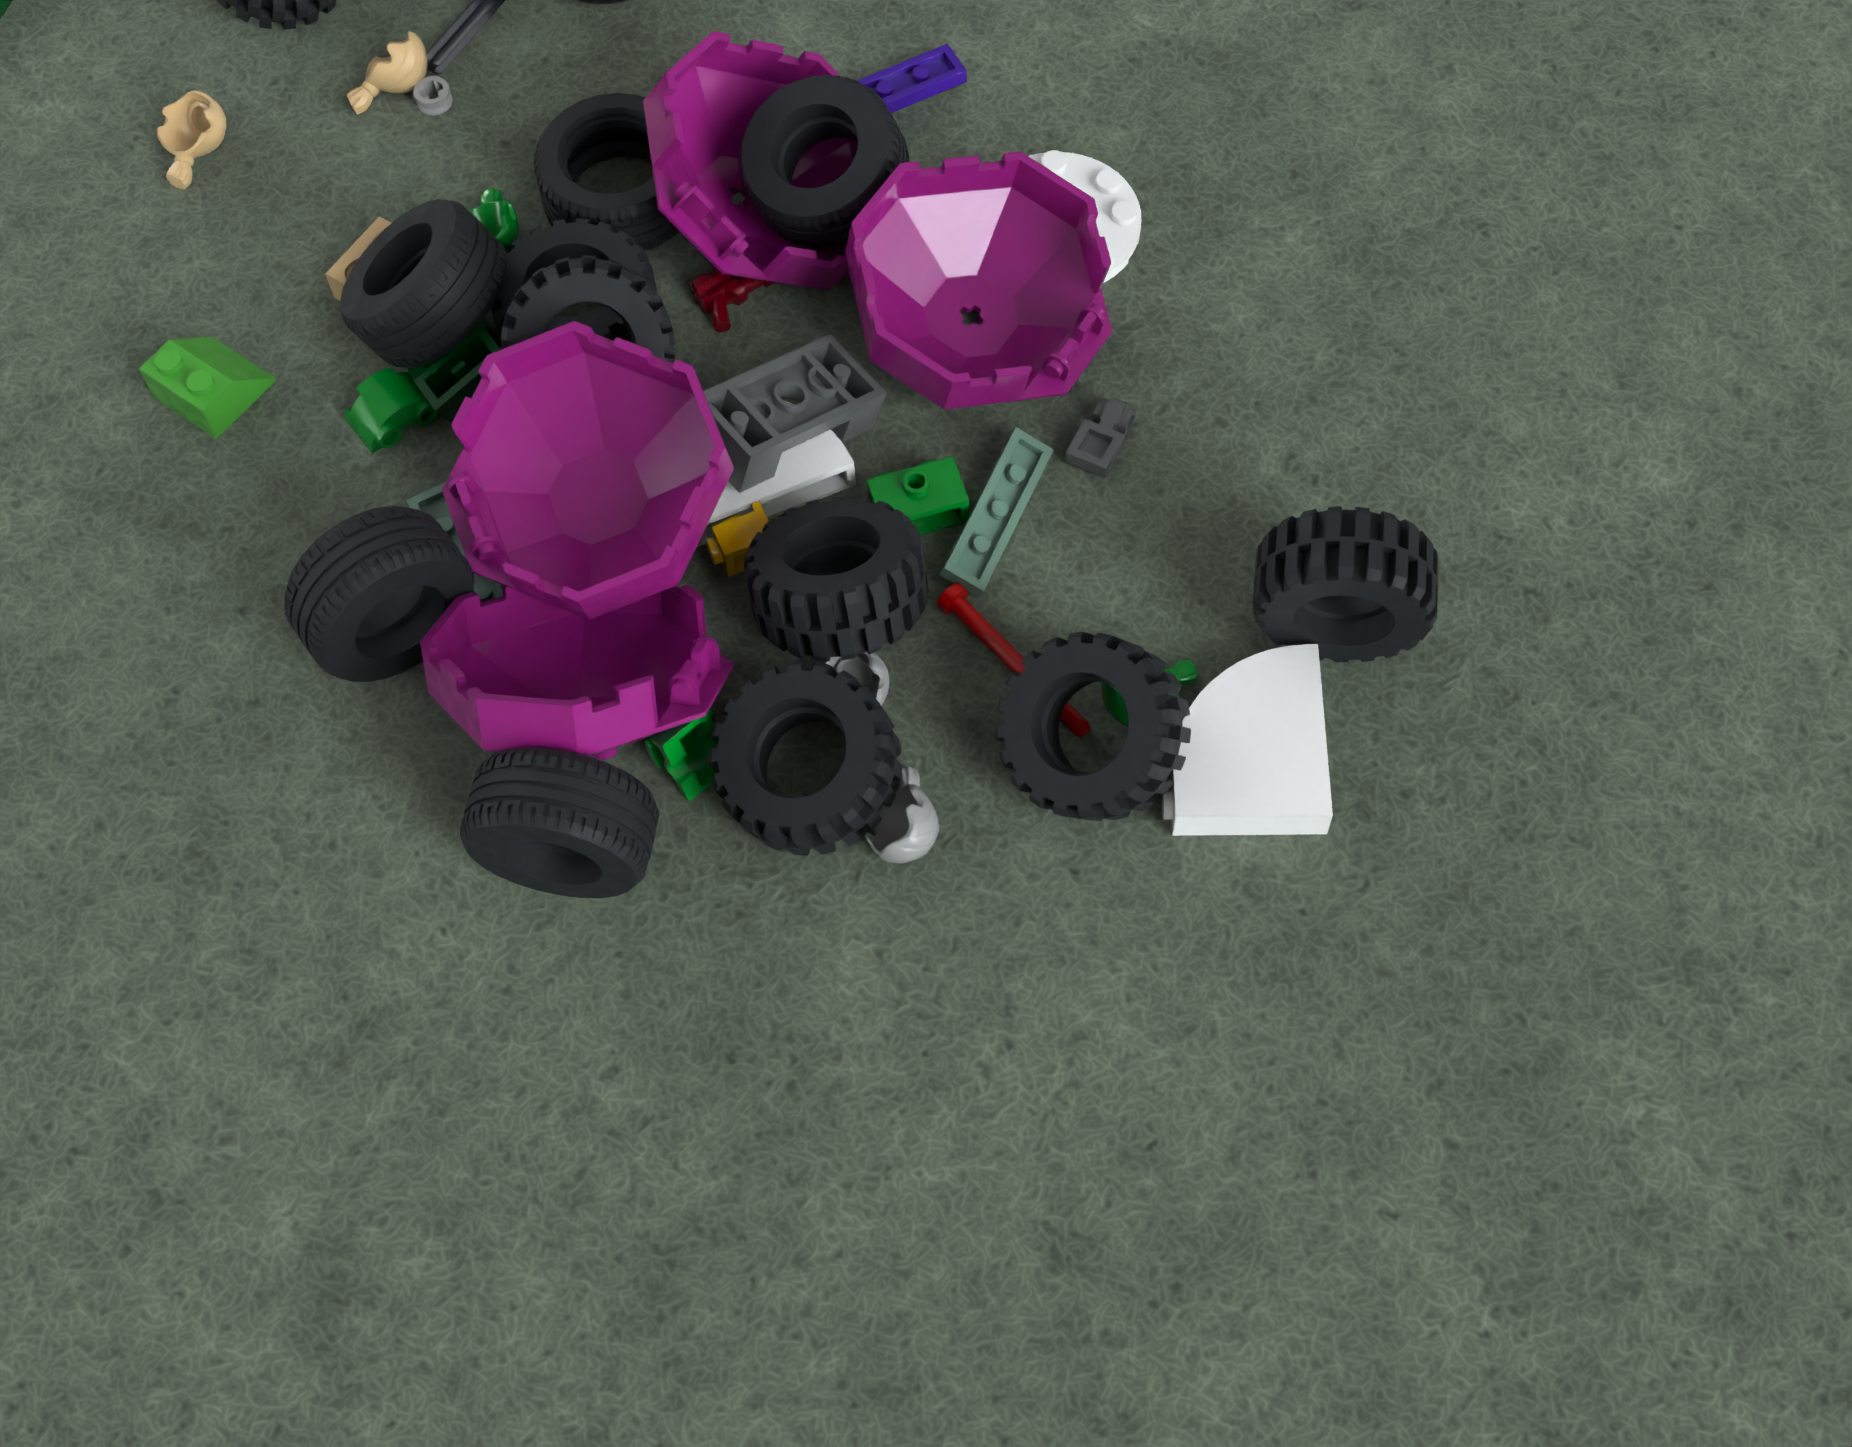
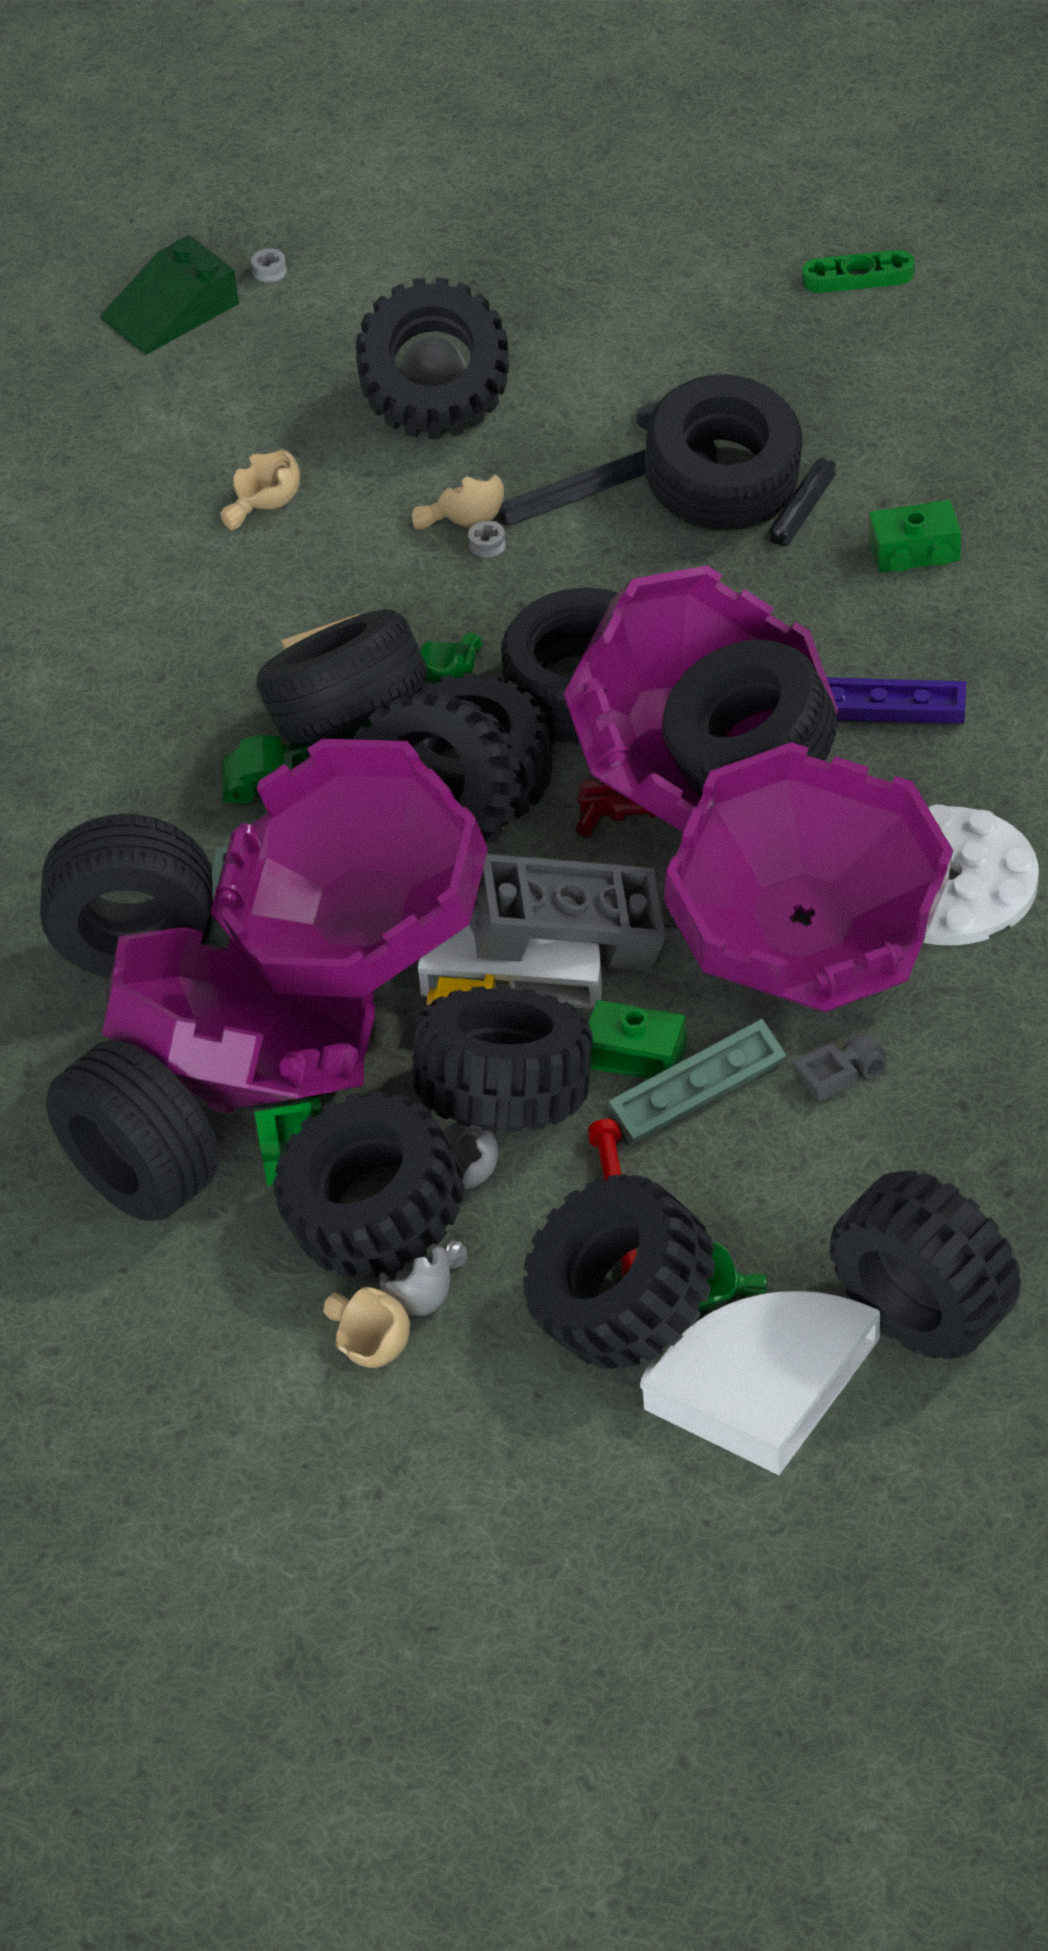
camera: 35 degrees right, 15 degrees down
(204, 381) = (131, 684): bright green slope -> none
(894, 891) = (370, 1327): none -> tan hair

